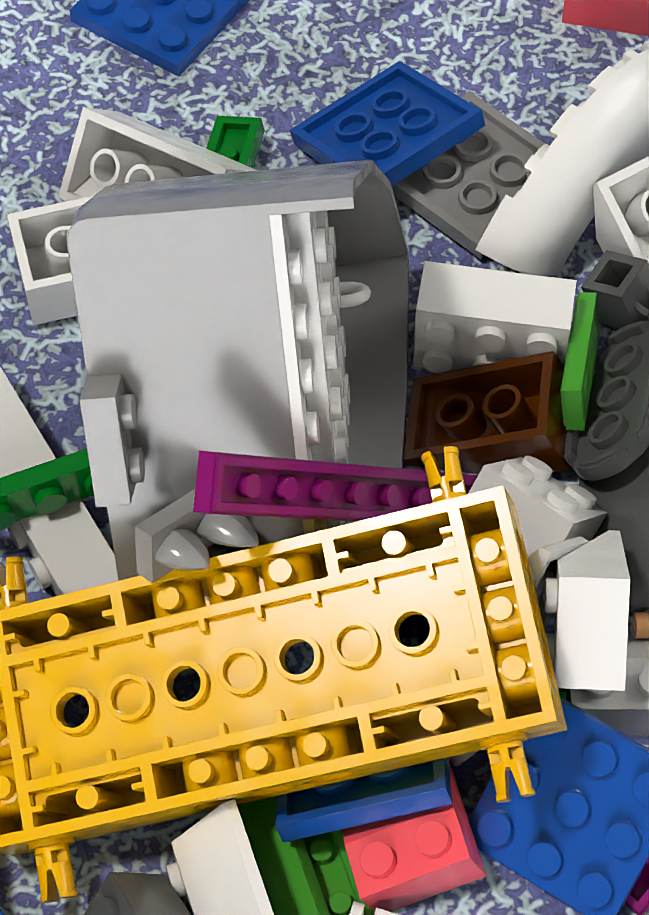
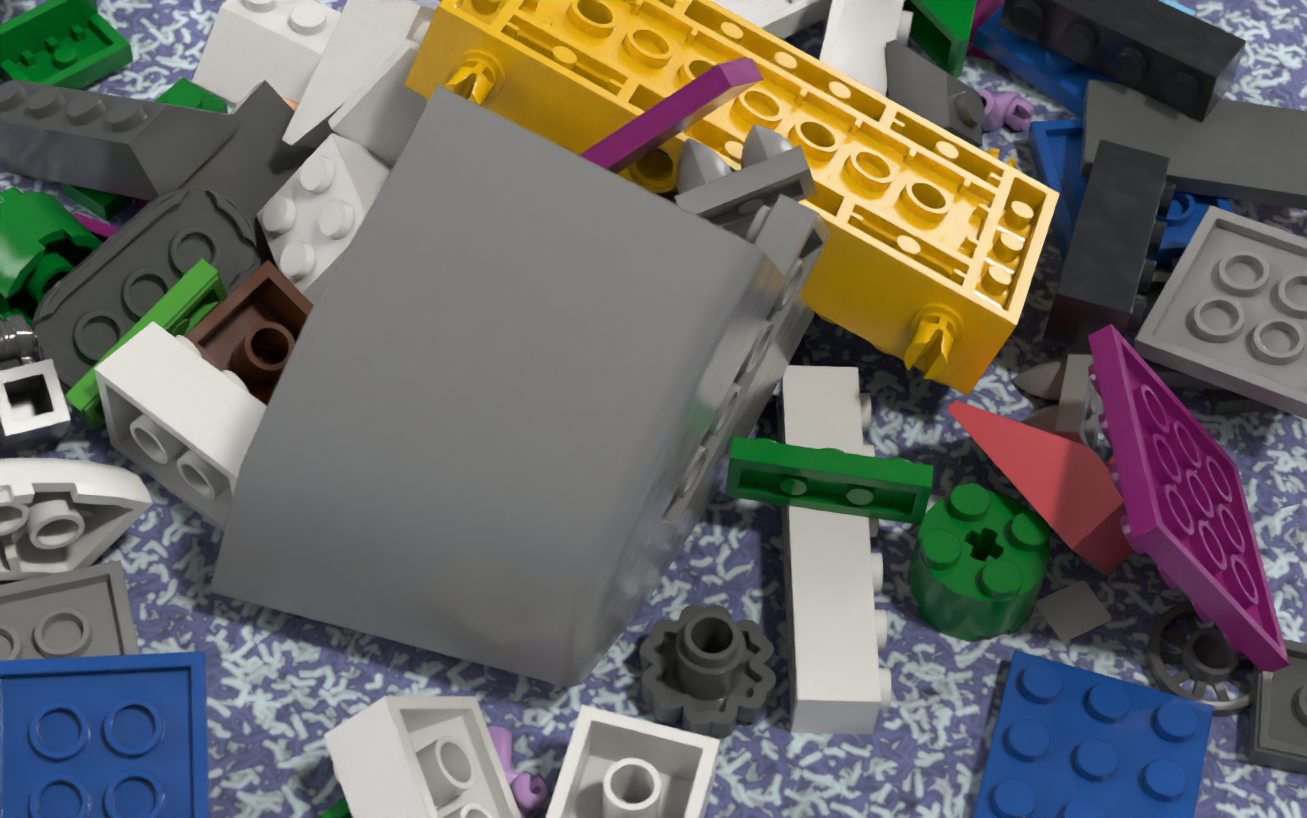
camera: 155 degrees left, 5 degrees down
(56, 378) = (707, 671): none -> dark grey plant

